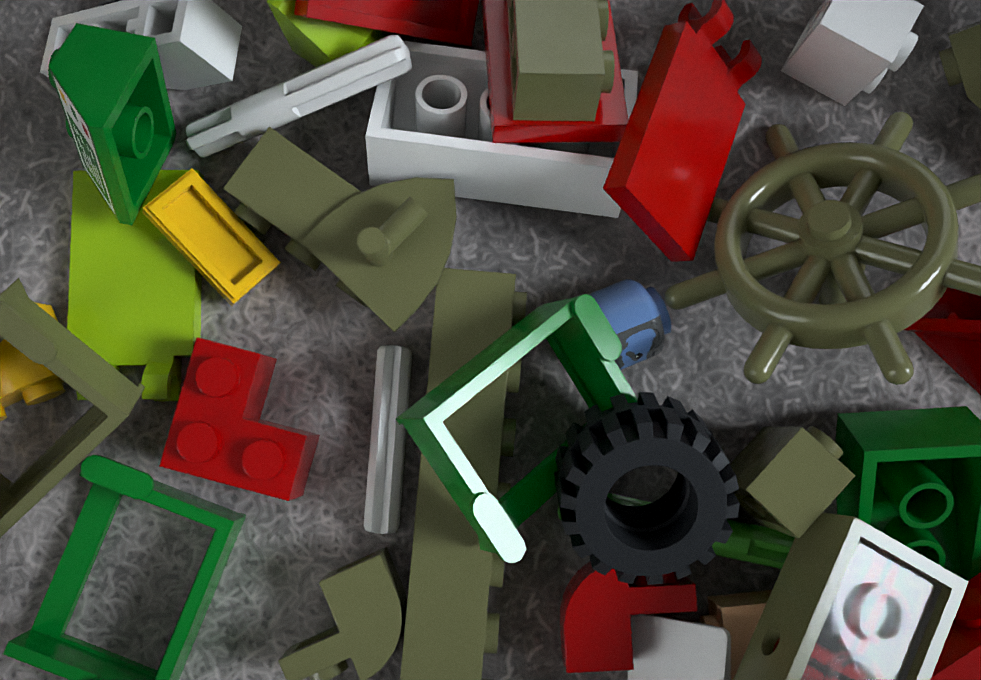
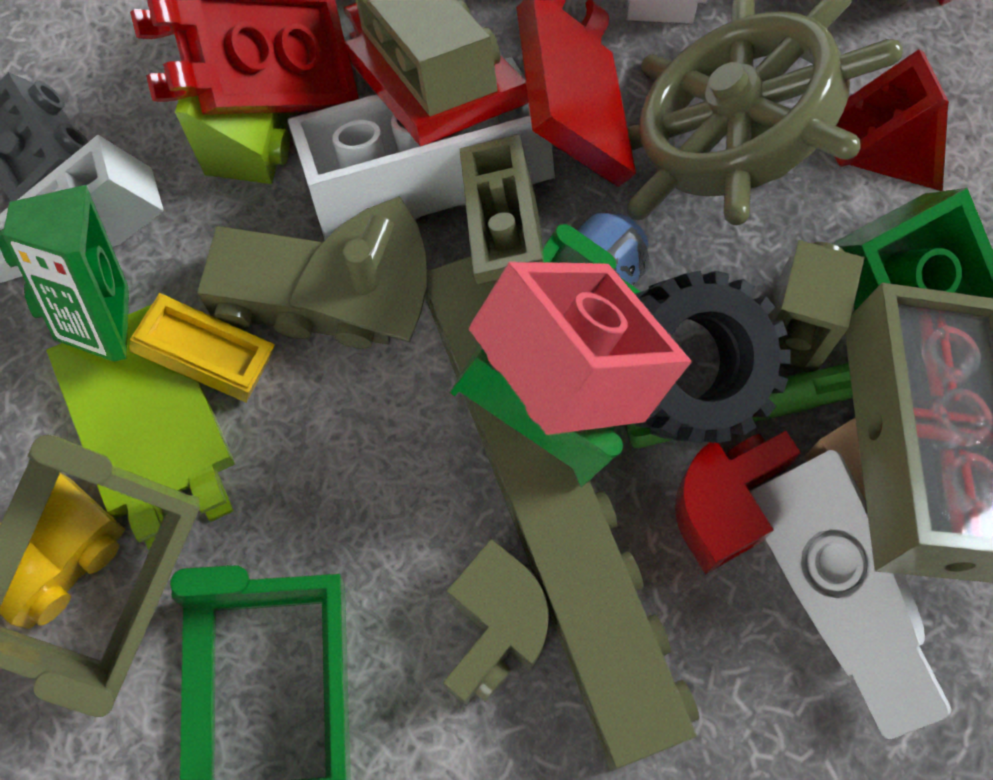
camera: 25 degrees left, 15 degrees down
(221, 431) = (291, 507): red brick -> none
(300, 96) = (229, 194): white axle -> none
(387, 440) = (447, 452): white axle -> none
(519, 458) = (577, 345): none -> coral brick
(532, 259) = (500, 207): none -> olive slope

